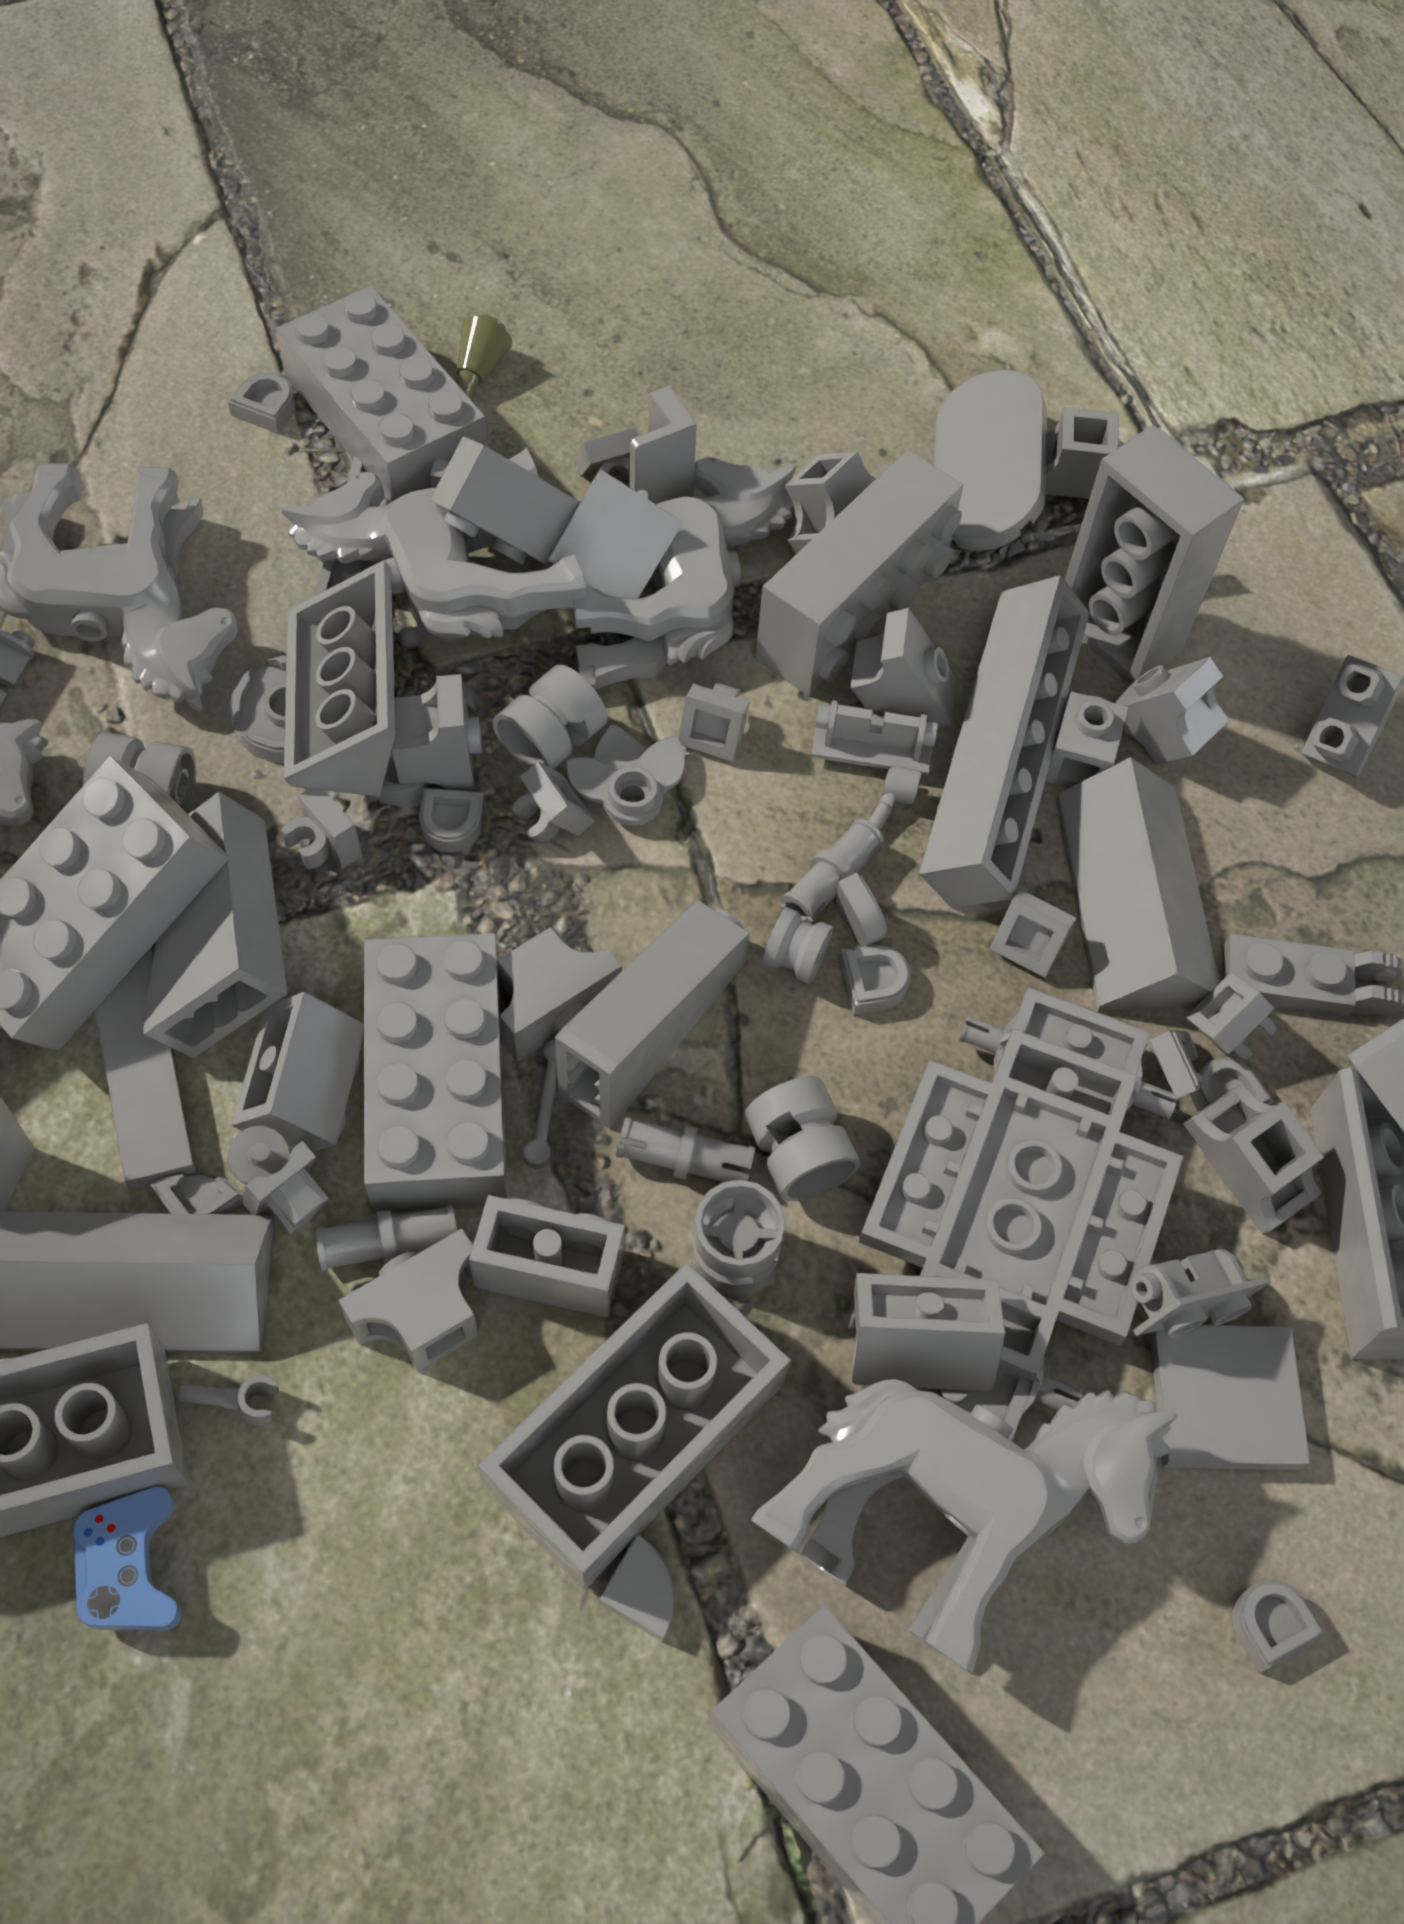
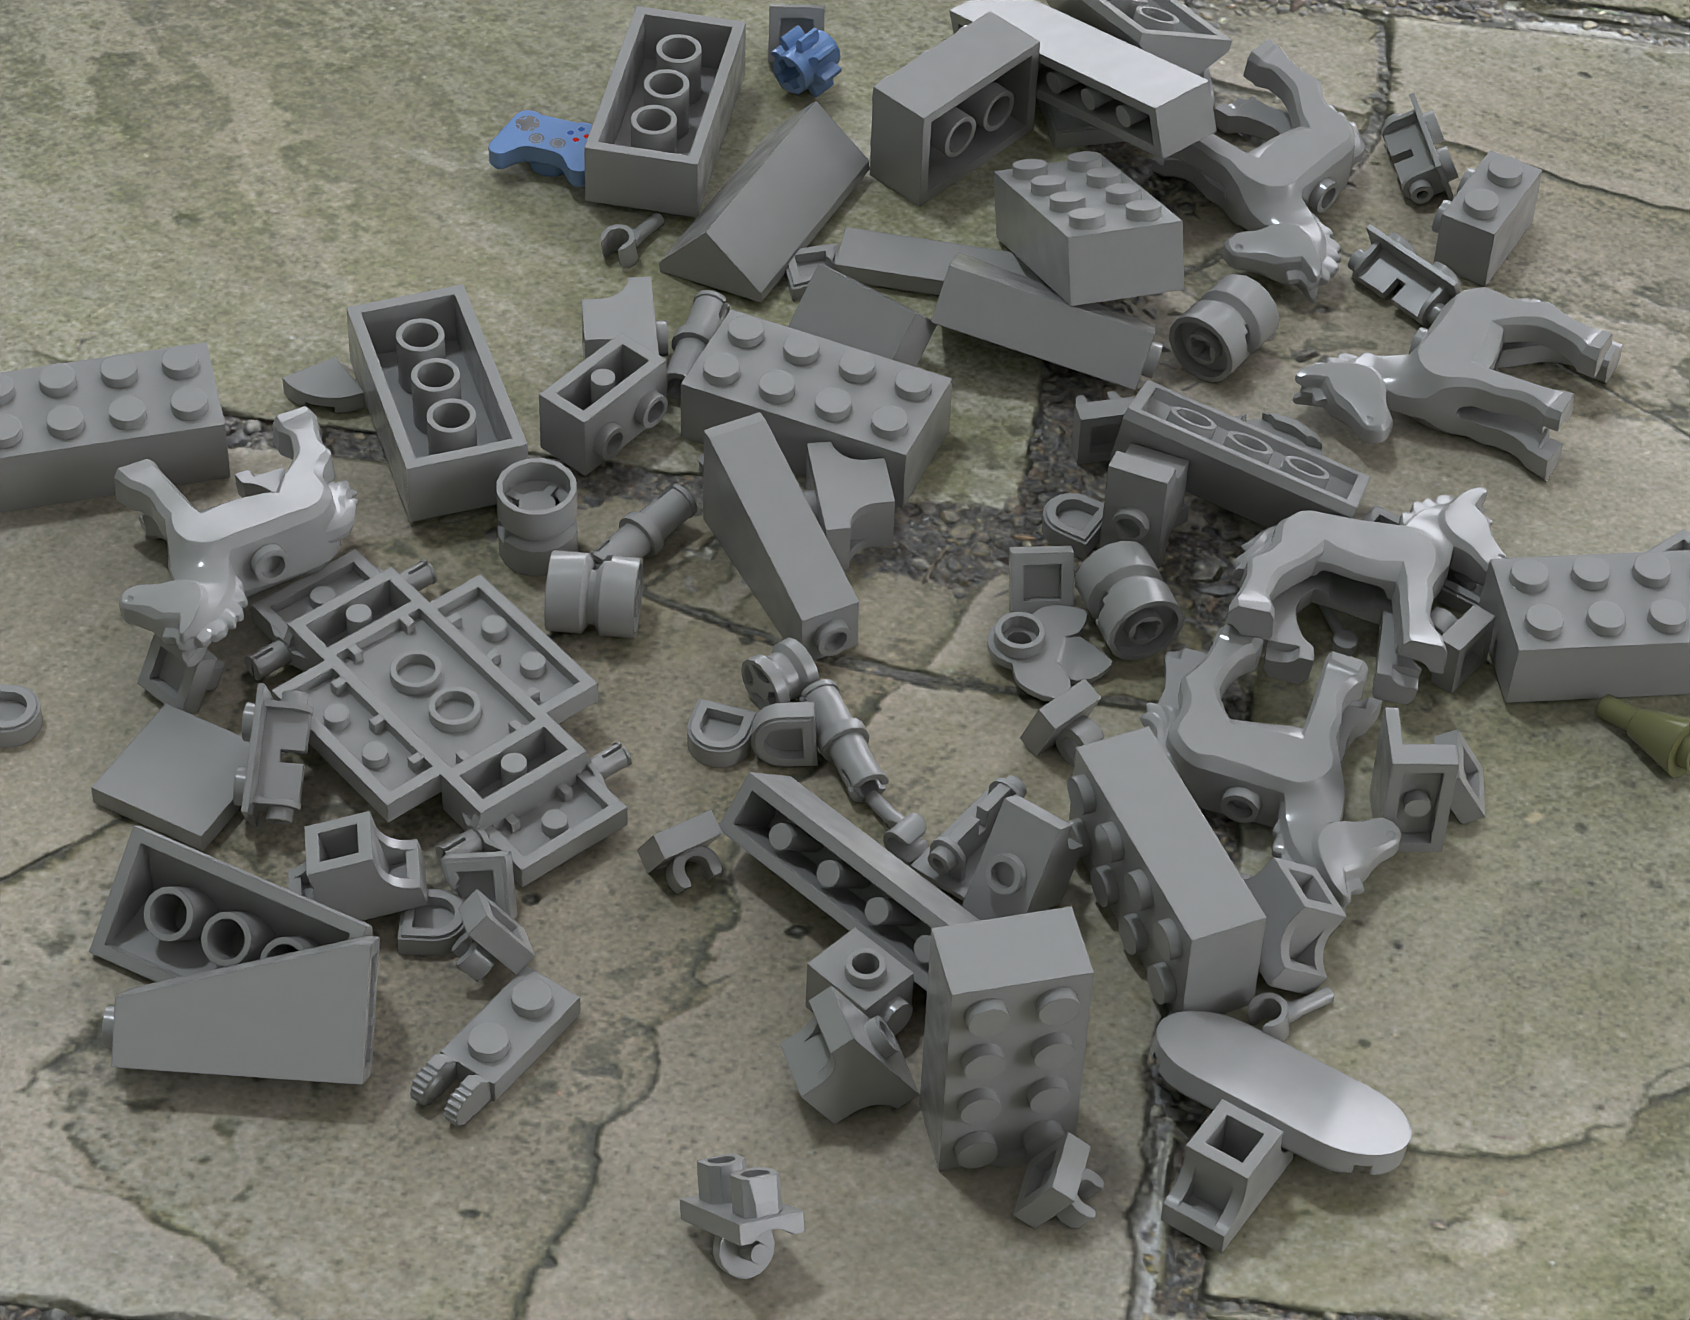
camera: 120 degrees right, 15 degrees down
(274, 1179) = (783, 277): light grey hips -> none
(504, 500) = (1370, 593): light grey brick -> none
(616, 537) = (1292, 677): light grey piece -> none
(927, 1331) = (376, 562): light grey panel -> none
(1136, 891) = (670, 967): light grey slope -> none

